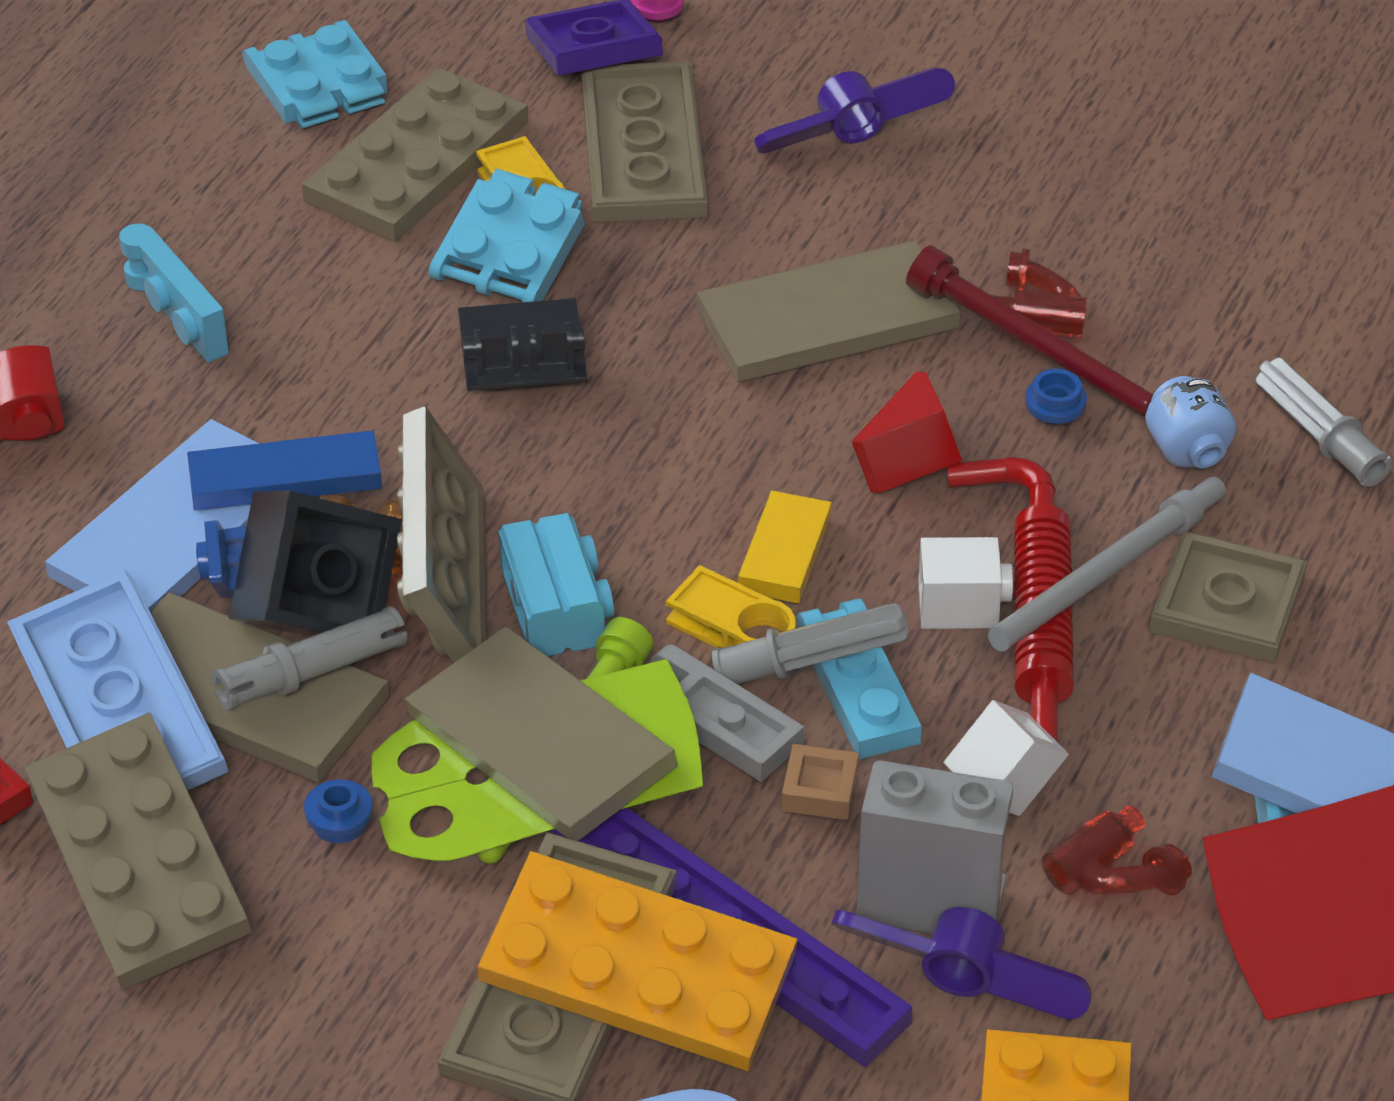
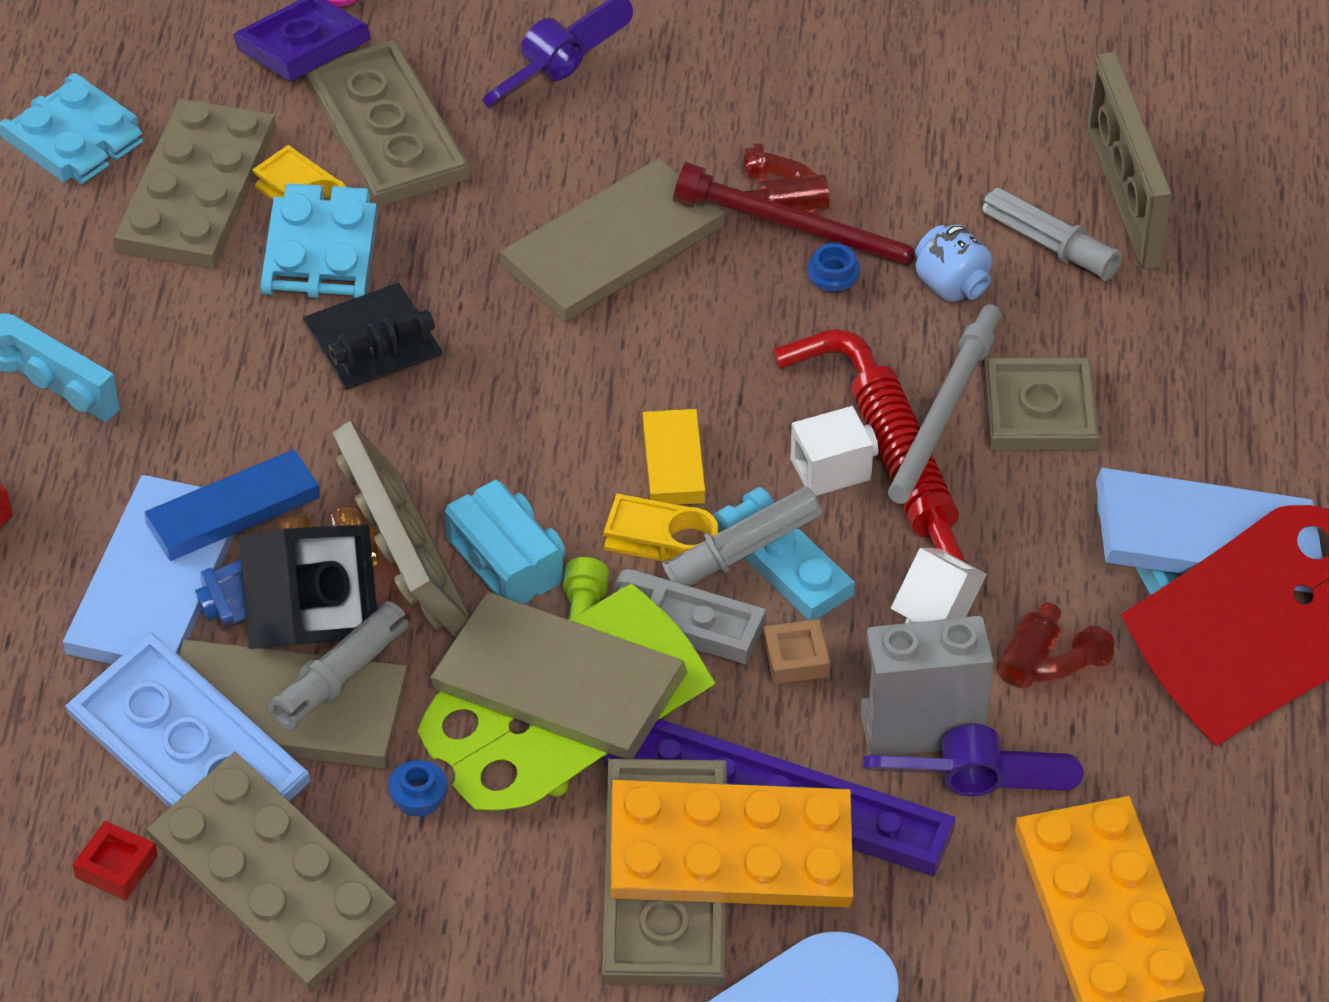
camera: 20 degrees left, 5 degrees up
(906, 438) = (736, 335): red slope -> none

